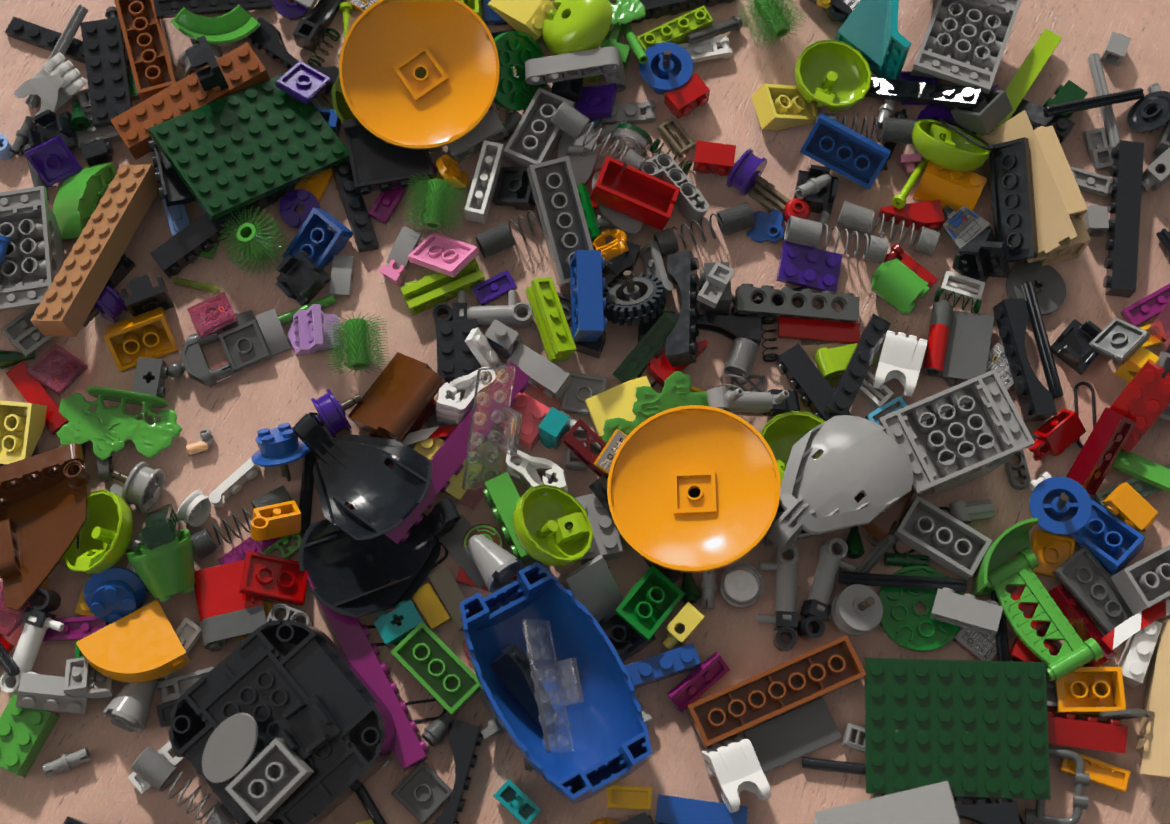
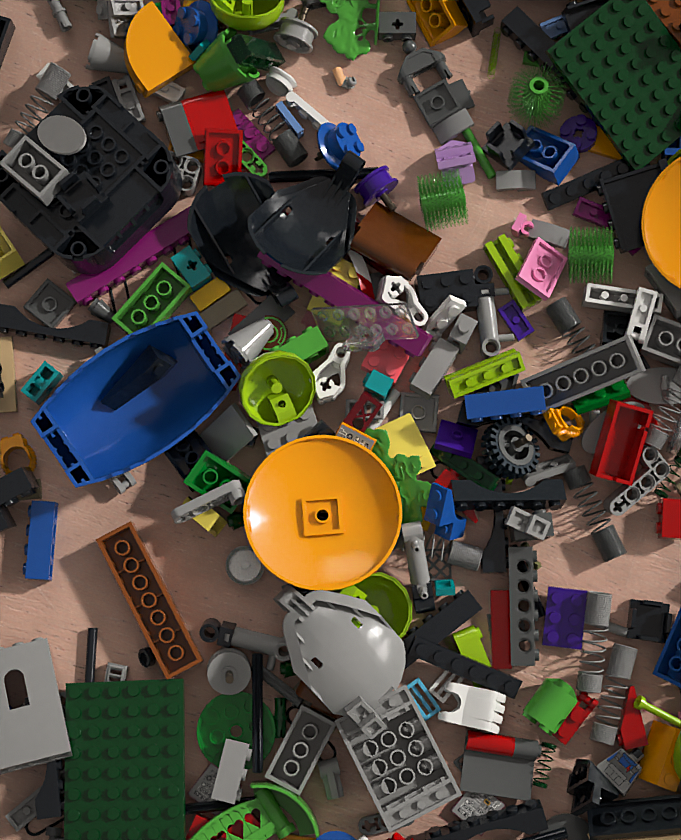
camera: 85 degrees right, 10 degrees up
(144, 592) = (199, 50): none -> teal tile
(212, 314) = (465, 70): clear pink tile -> none
(241, 501) = (291, 122): none -> medium blue tile
(275, 521) = (271, 149): light orange hinge -> none
(448, 167) = (627, 267): light orange tile -> none
(504, 161) = (641, 313): none -> white plate
(554, 683) = (139, 402): clear bracket -> none
(617, 355) = (456, 439): none -> dark purple plate
(629, 797) = (54, 479): yellow tile -> none
(662, 585) = (230, 491): none -> light grey beam
(663, 666) = (164, 491): blue brick -> none
(698, 682) = (156, 532): magenta plate -> none
(699, 368) = (441, 513): none -> blue arch
(708, 589) = (235, 537): light grey pin -> none
(736, 770) = (79, 567): white piece -> none
(747, 173) = (656, 551): dark purple wheel -> none
(757, 188) = (645, 564): dark tan tile -> none
(765, 224) = (607, 572): blue plate -> none
(771, 355) = (469, 581): black piece -> none
(774, 379) = (444, 587): none -> teal tile
(786, 614) = (236, 607): light grey piece -> none
(793, 735) = (114, 618): dark grey tile -> none
(797, 208) = (628, 603): red head -> none
(813, 186) = (649, 616): light grey pin -> none
(837, 700) = (146, 657): none -> black tile
(916, 457) = (365, 717): none -> light grey slope
(961, 288) = (568, 771): white tile -> none

